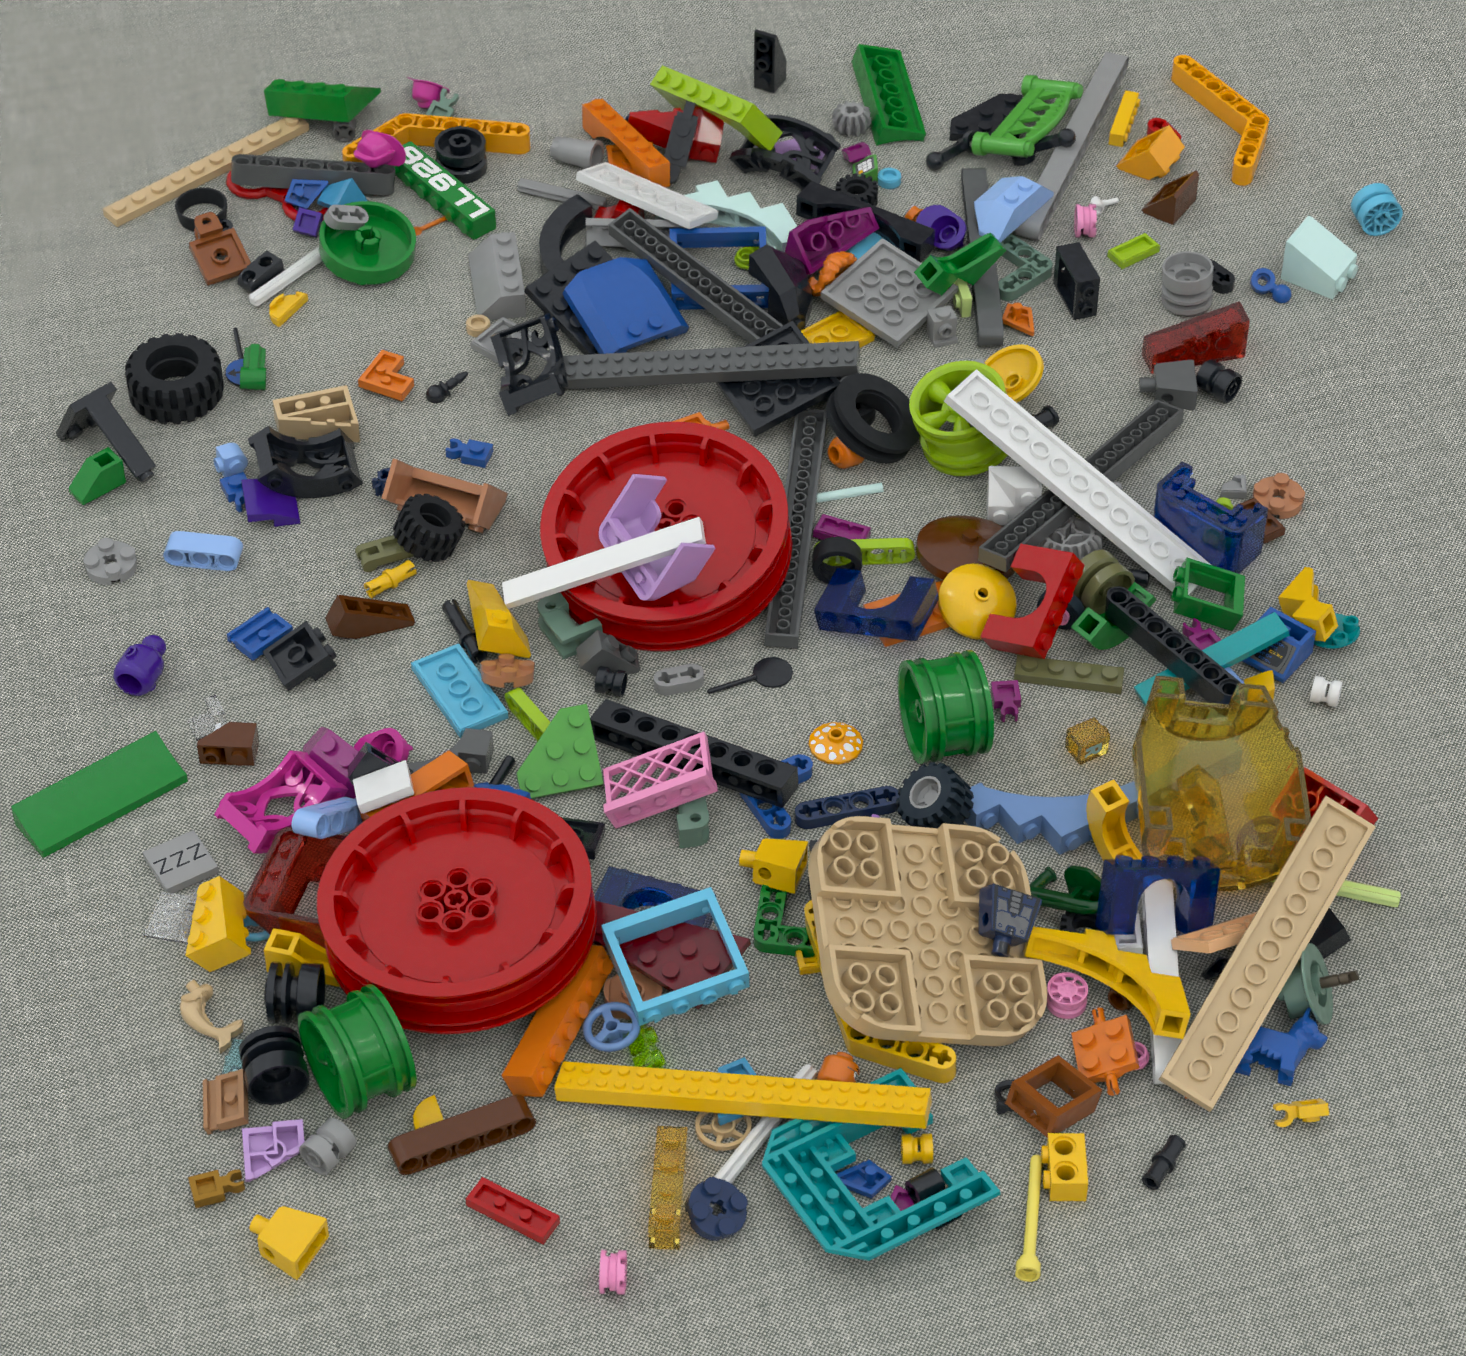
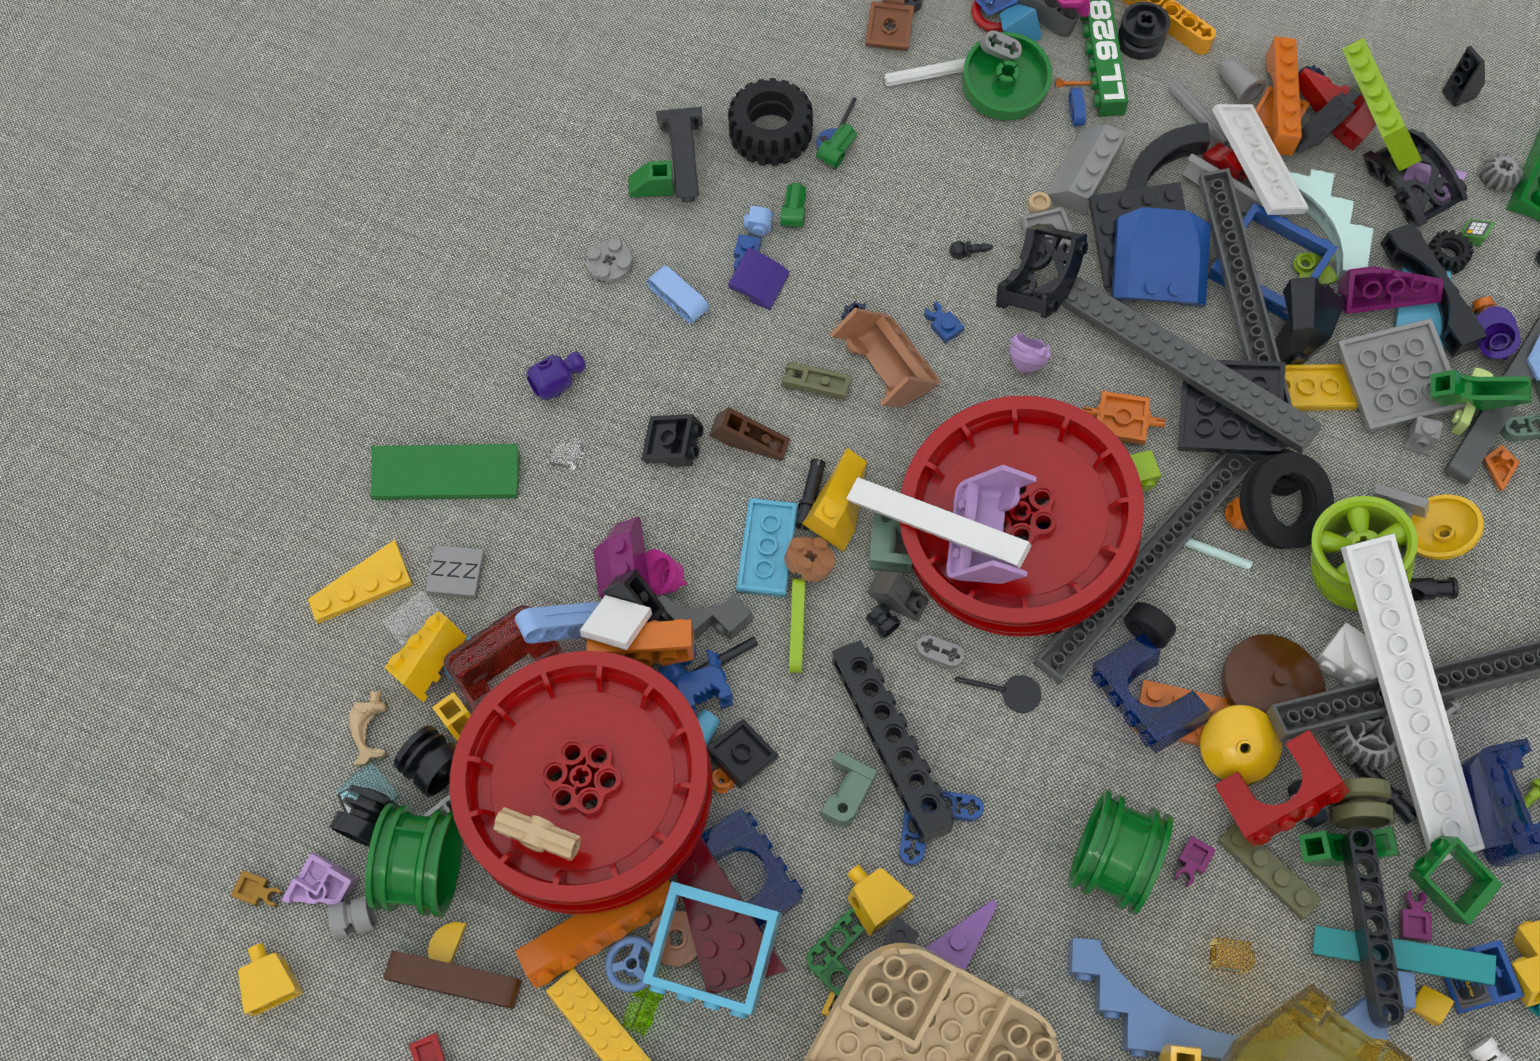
camera: 40 degrees right, 20 degrees up
(97, 920) = (368, 581): none -> yellow wing
(225, 1102) = (317, 816): medium nougat plate -> none
(230, 745) = (565, 489): reddish brown slope -> none
(247, 426) = (793, 209): none -> green piece
(247, 808) = (585, 587): dark pink fence -> none
(259, 633) = (661, 398): blue plate -> none
(260, 271) = (908, 57): black leg -> none
(285, 306) = (907, 98): yellow tile -> none
(307, 222) = (977, 28): dark purple plate -> none
(317, 414) = (849, 220): tan wedge -> none
(318, 452) = (810, 284): black fence -> none
(383, 376) = (927, 209): orange plate -> none
(390, 578) = (792, 407): yellow pin -> none
(429, 527) = (862, 371): black tyre -> none
(450, 238) = (1077, 106): none -> blue beam
(461, 939) = (537, 833): none -> tan piece
(563, 757) = (787, 673): bright green plate -> none
(568, 433) = (1028, 354): none -> lavender hair
(662, 794) = (833, 771): bright pink fence -> none
(833, 267) = (1363, 322): orange piece -> none
(835, 743) = (1015, 813): light orange dish -> none
(836, 527) = (1180, 593): magenta plate -> none
(845, 803) = (981, 870): dark blue beam -> none
(856, 152) = (1480, 209): magenta plate -> none
(885, 557) = (1192, 630): lime beam -> none
(889, 178) = (1491, 251): medium azure tile -> none
(934, 797) = (1046, 934): black wheel -> none

